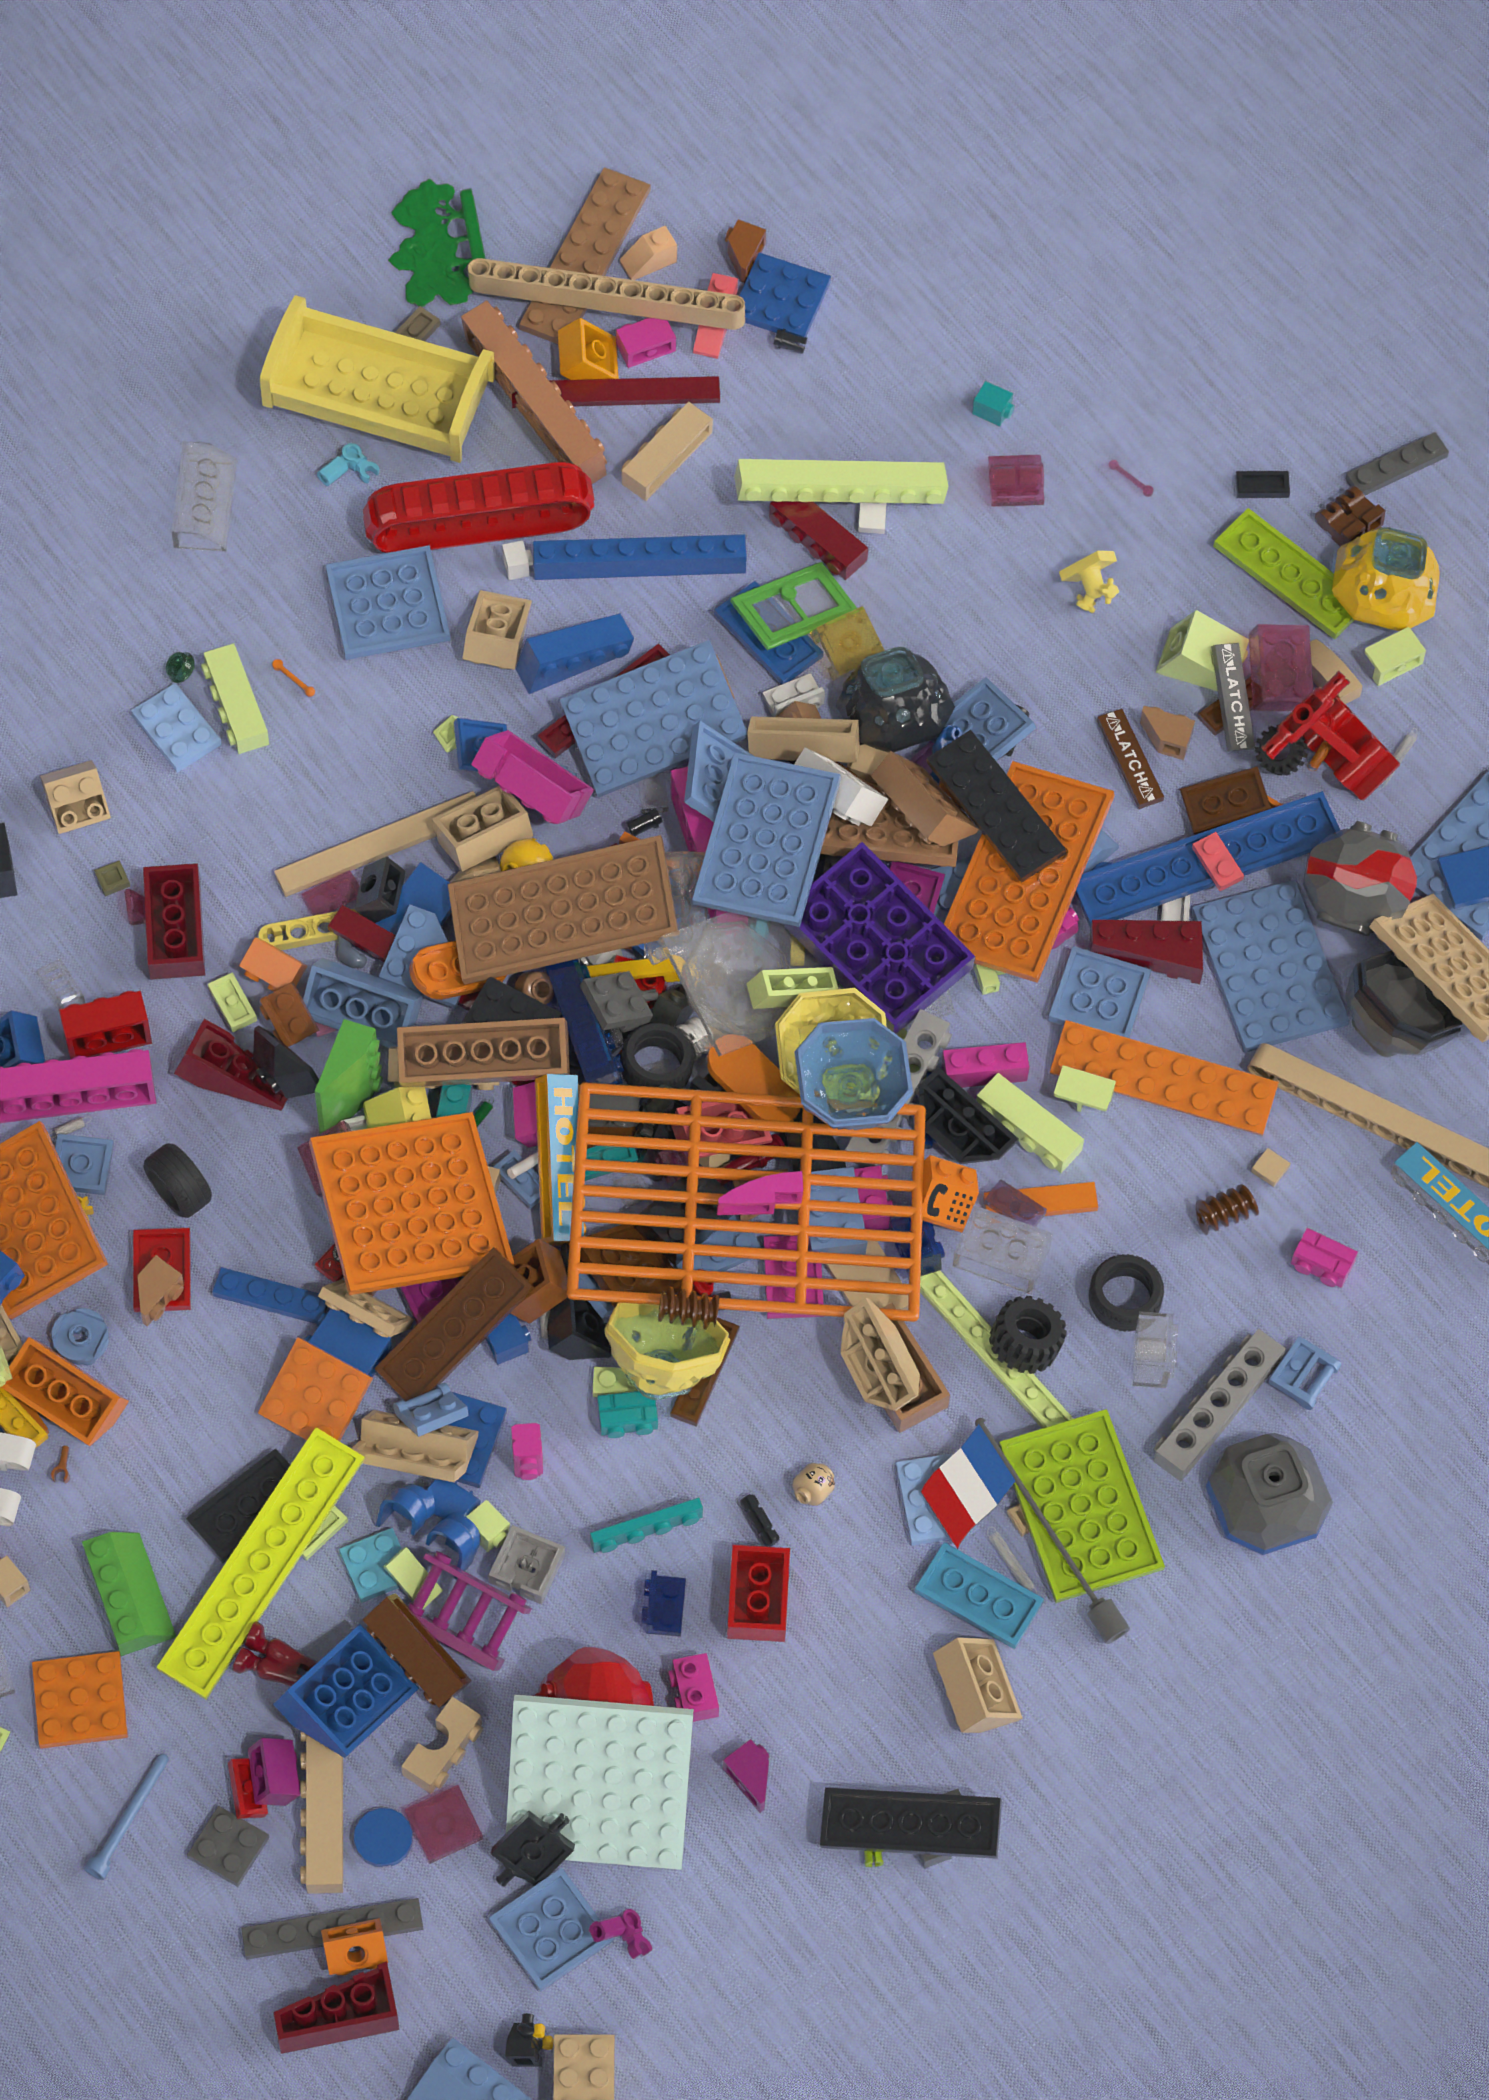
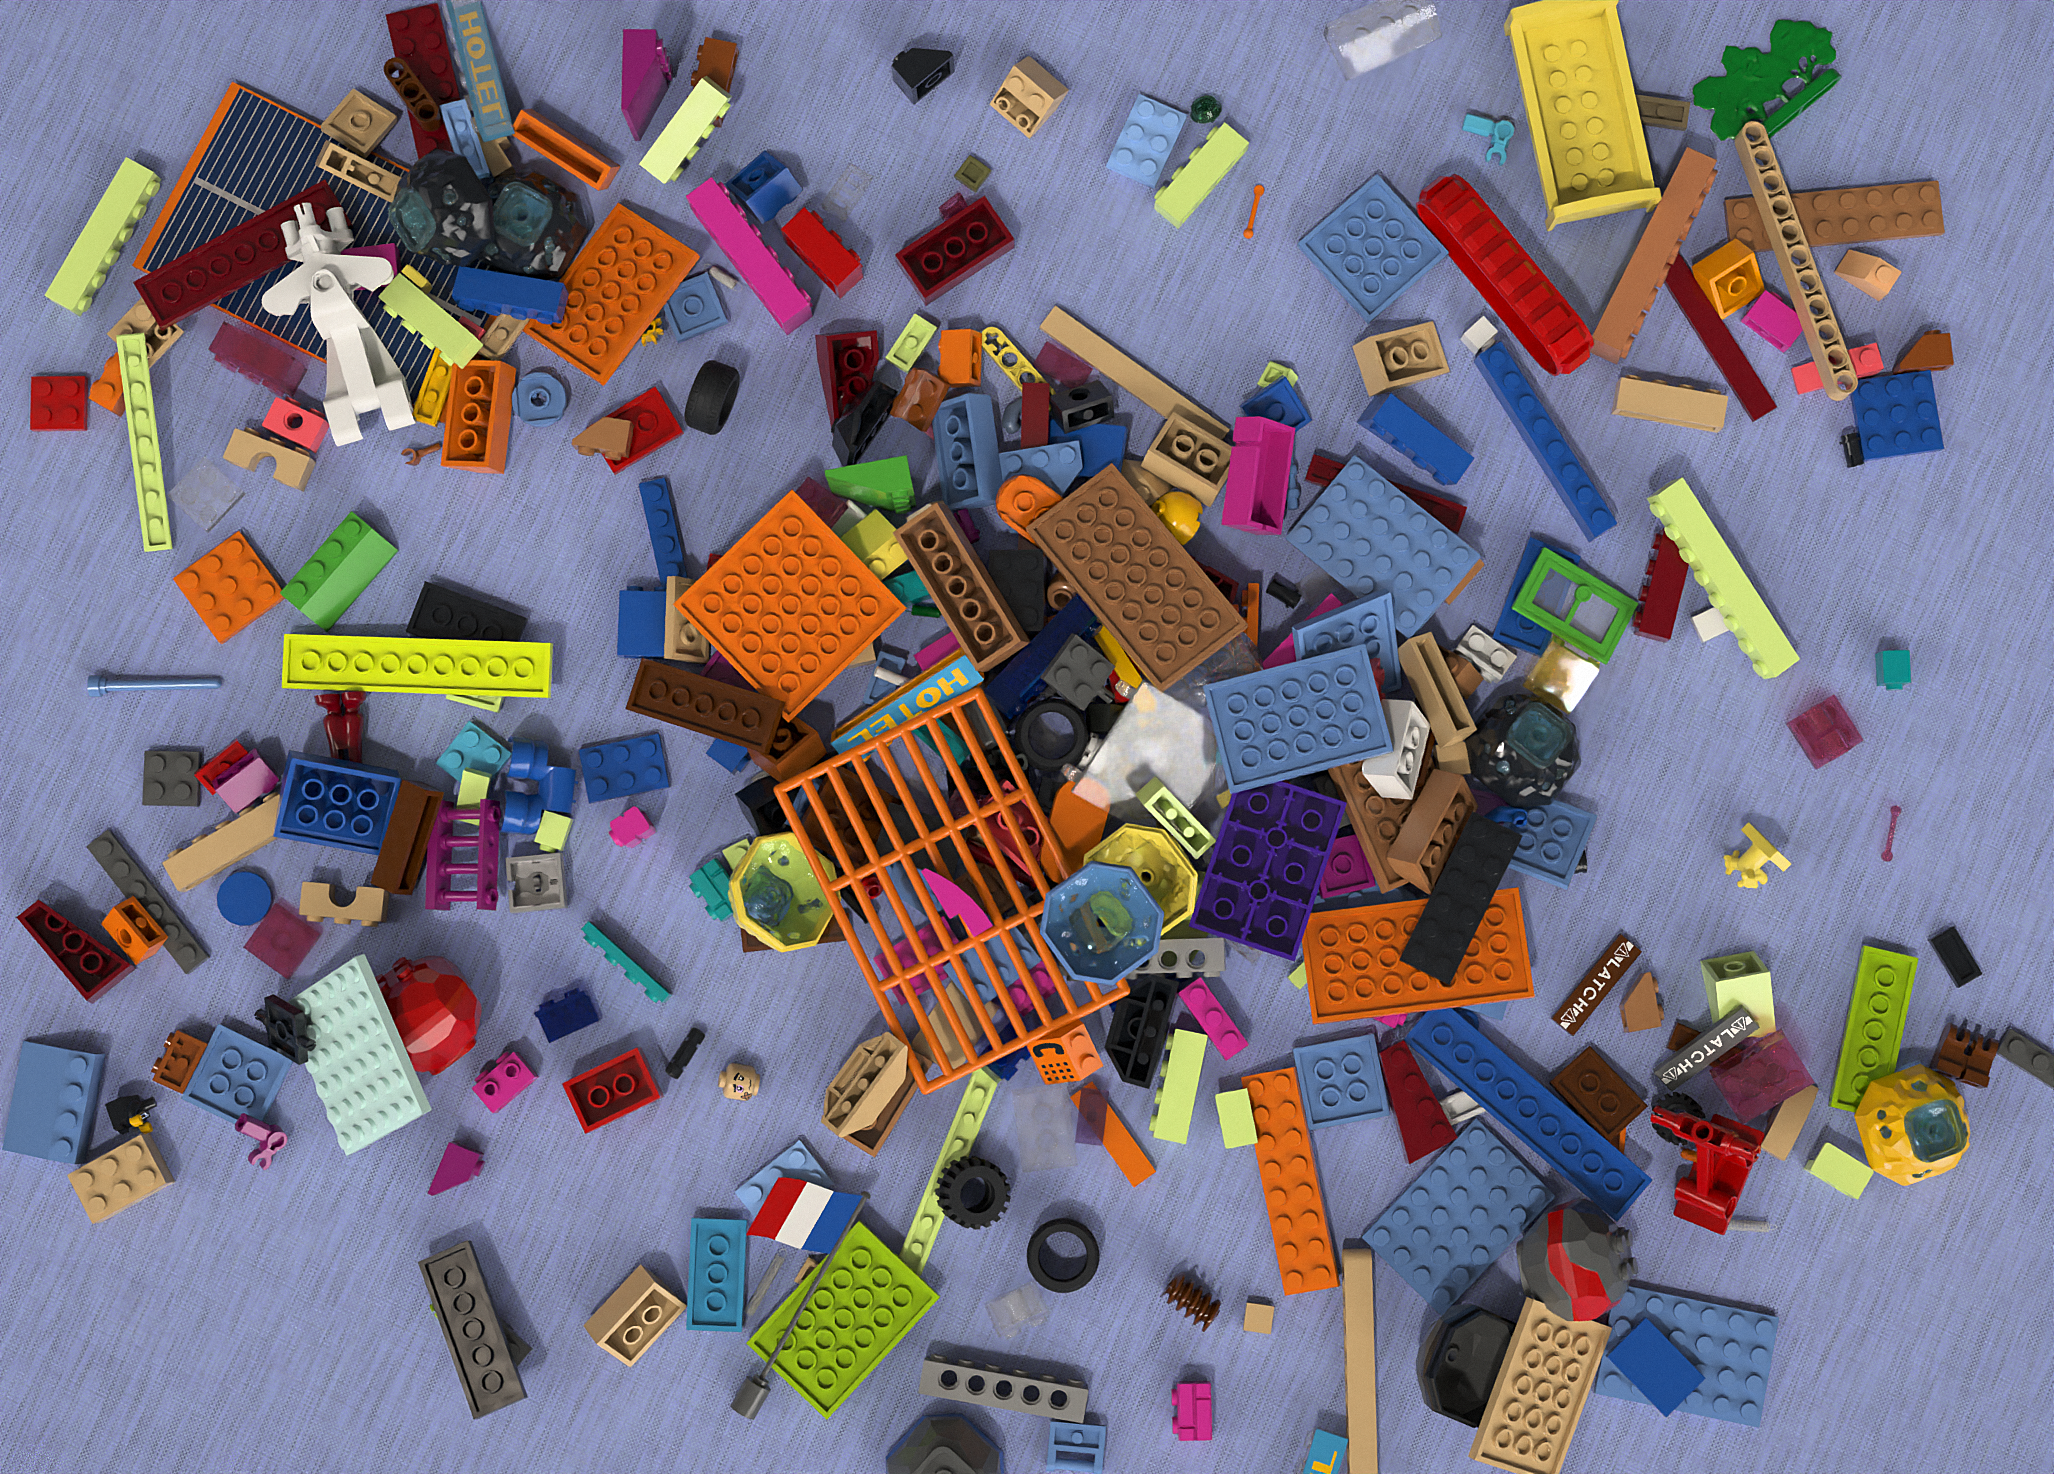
camera: 65 degrees right, 20 degrees up
(314, 1392) = (589, 623): orange plate -> none
(393, 1446) = (587, 731): tan slope -> none
(433, 1415) = (620, 734): medium blue plate -> none
(502, 1972) = (179, 1060): none -> dark orange bracket
(688, 1307) = (815, 897): reddish brown piece -> none
(1217, 861) = (1526, 1121): coral plate -> none

